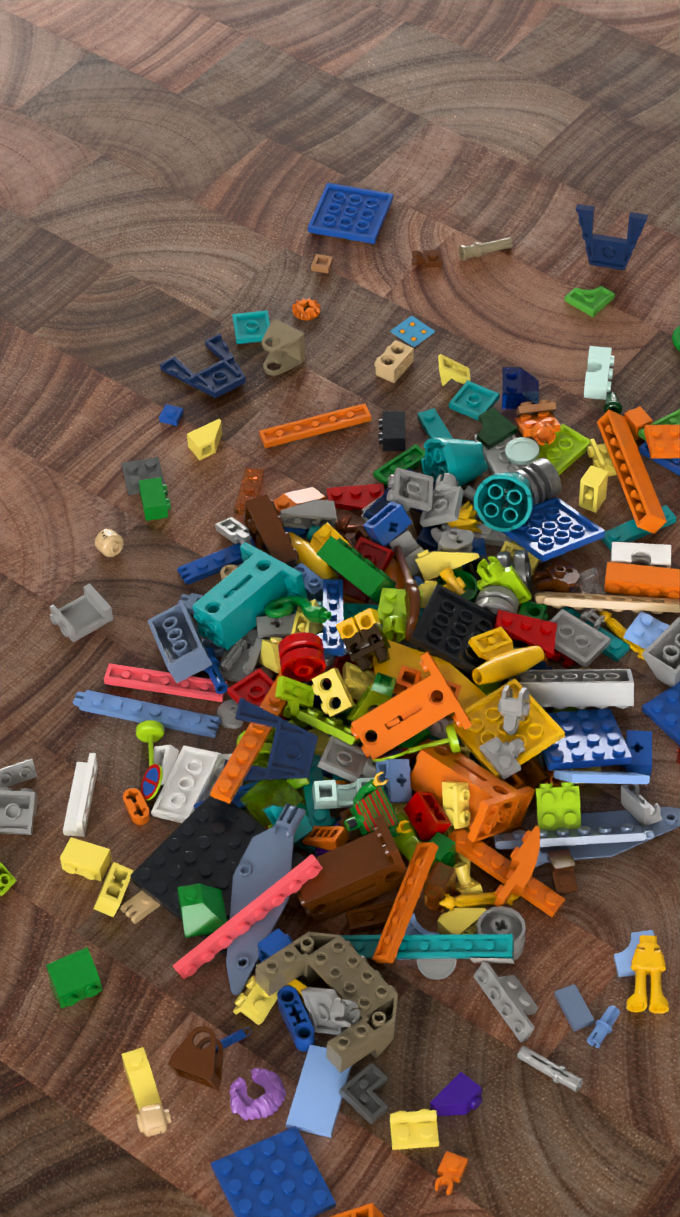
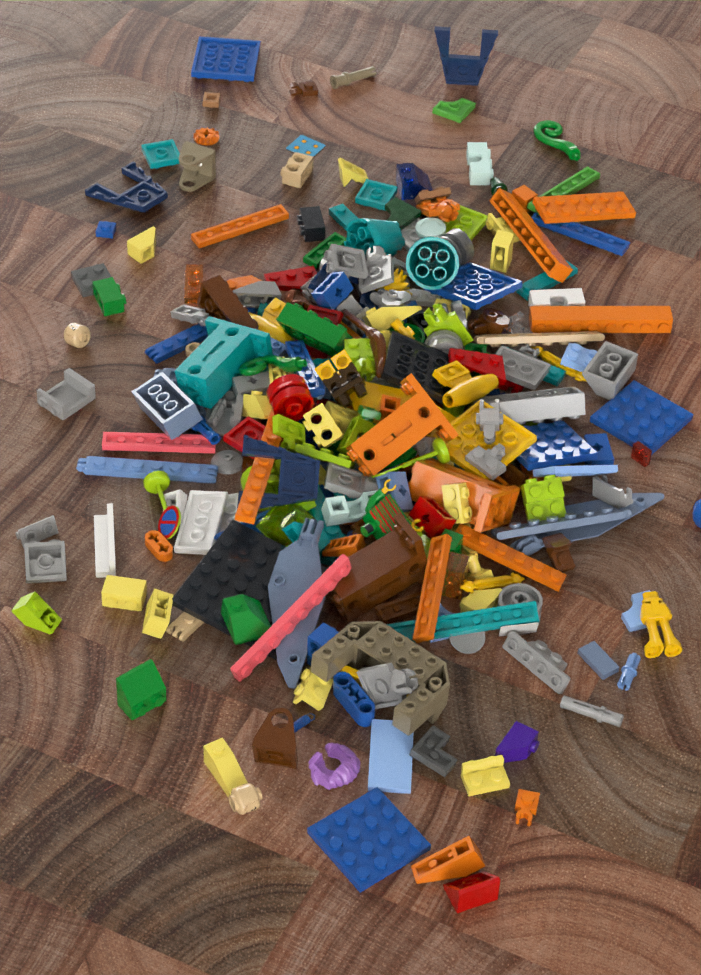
camera: 15 degrees left, 5 degrees down
(522, 867) = (526, 549): orange slope -> none

